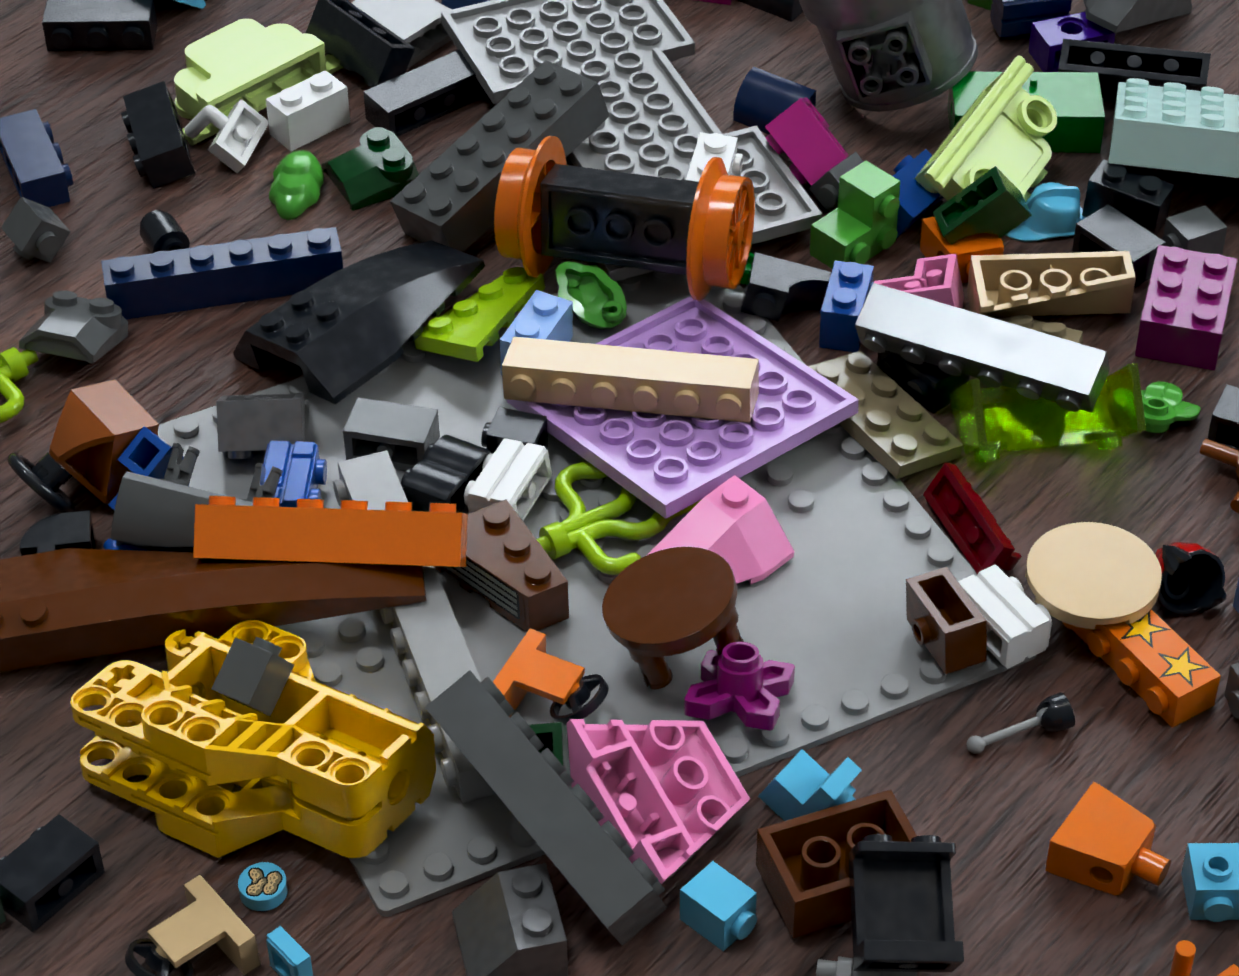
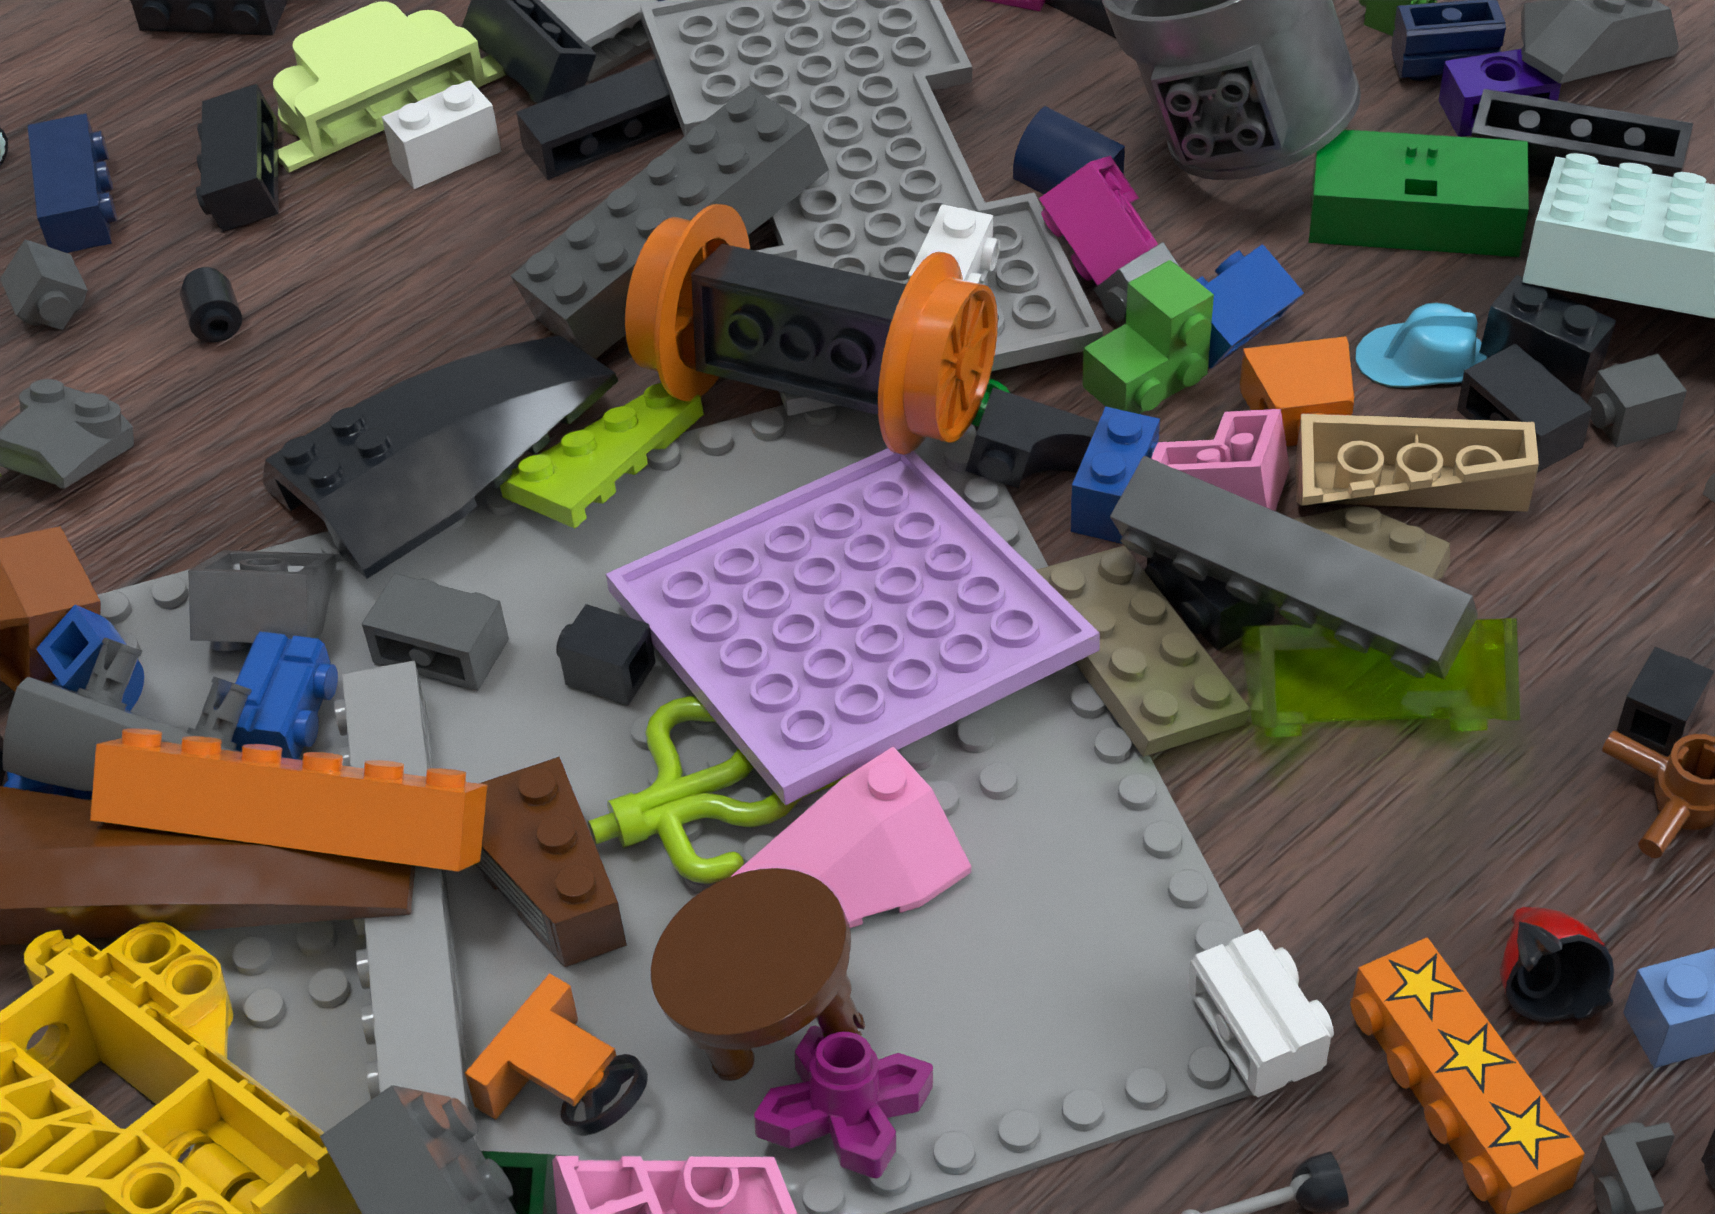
camera: 10 degrees right, 5 degrees up
(221, 272) = (266, 364): dark blue brick -> none
(236, 135) = (341, 162): white plate -> none
(253, 674) = (107, 1037): dark grey brick -> none
(296, 184) = (405, 238): bright green arm -> none
(372, 170) = (508, 223): dark green slope -> none
(443, 473) = (495, 706): black brick -> none
(513, 474) = (581, 721): white brick -> none
(541, 318) = (667, 493): light blue brick -> none
(594, 294) = (756, 433): bright green arm -> none
(631, 379) = (777, 578): tan brick -> none
(946, 620) = (1169, 1016): reddish brown brick -> none
(969, 521) = (1240, 842): dark red plate -> none
(984, 206) = (1332, 340): dark green arch -> none
(997, 130) = (1361, 248): yellowish green brick -> none
(1093, 574) = (1407, 959): tan tile -> none
(1164, 405) = (1556, 667): bright green plate -> none
(1186, 307) = (1610, 512): magenta brick -> none

